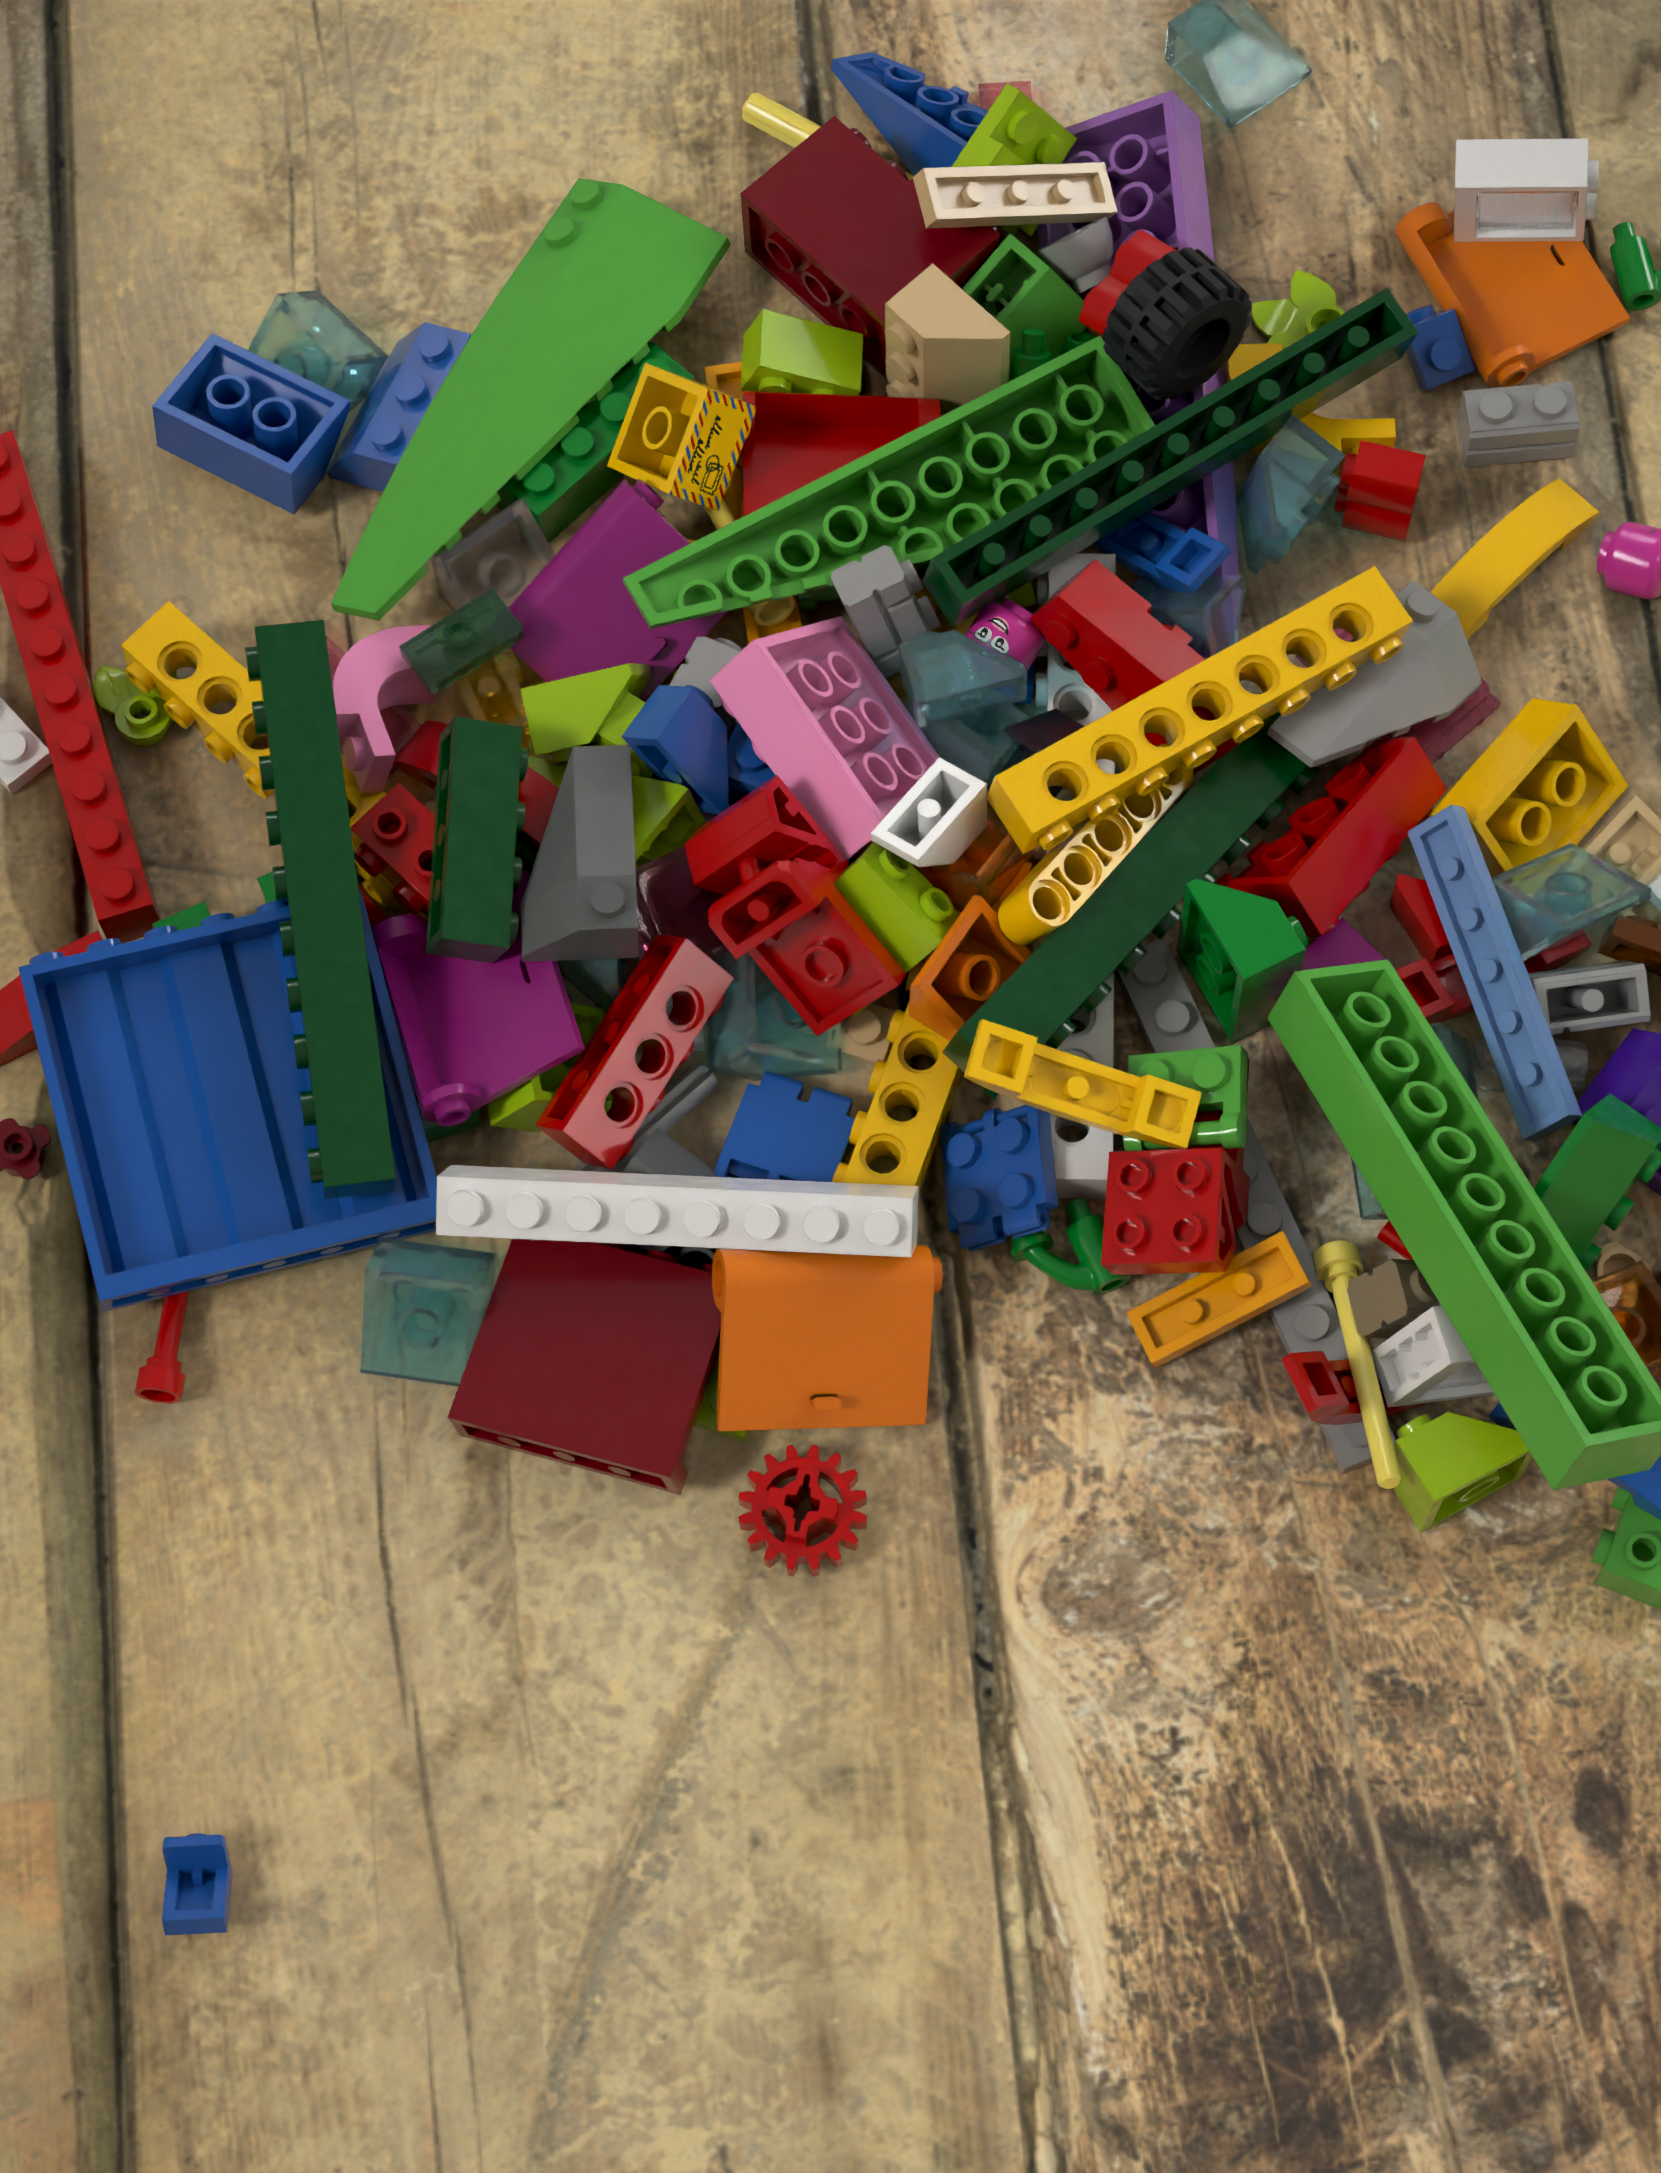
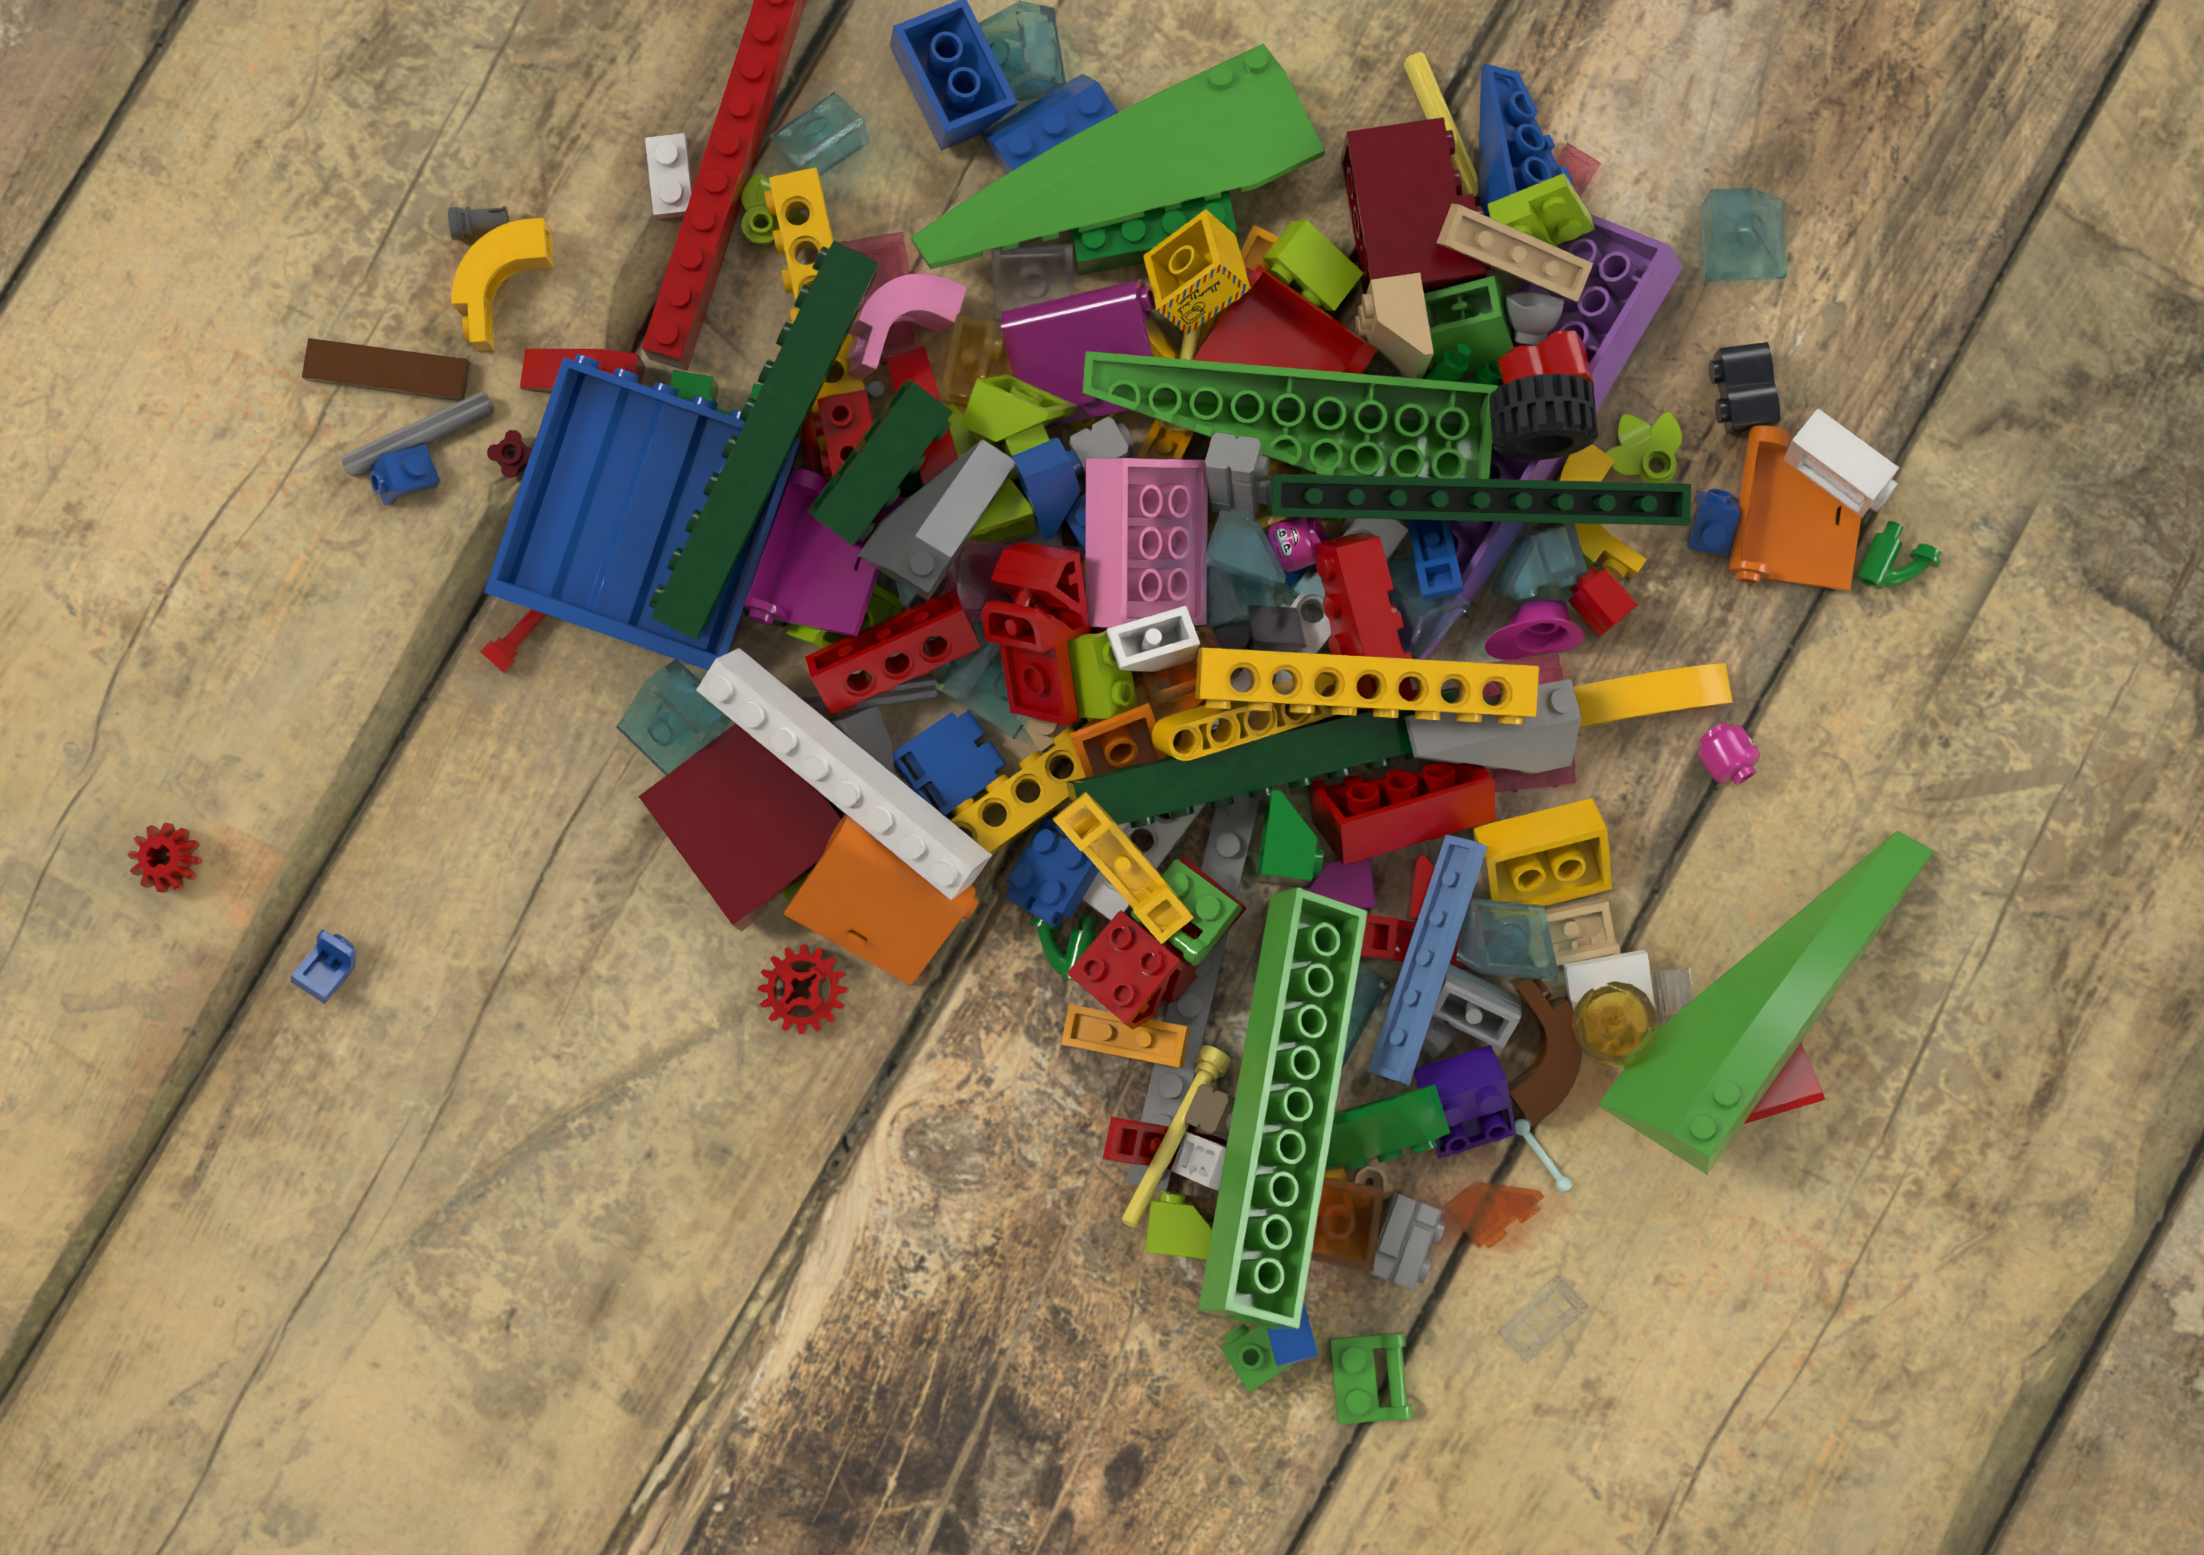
camera: 35 degrees right, 15 degrees up
(146, 573) = (821, 135): none -> clear light blue slope
(462, 641) = (970, 318): clear green plate -> none
(1336, 555) = (1535, 630): none -> dark pink piece
(1357, 194) = (1745, 387): none -> black brick
(1517, 424) = (1723, 612): light grey brick -> none

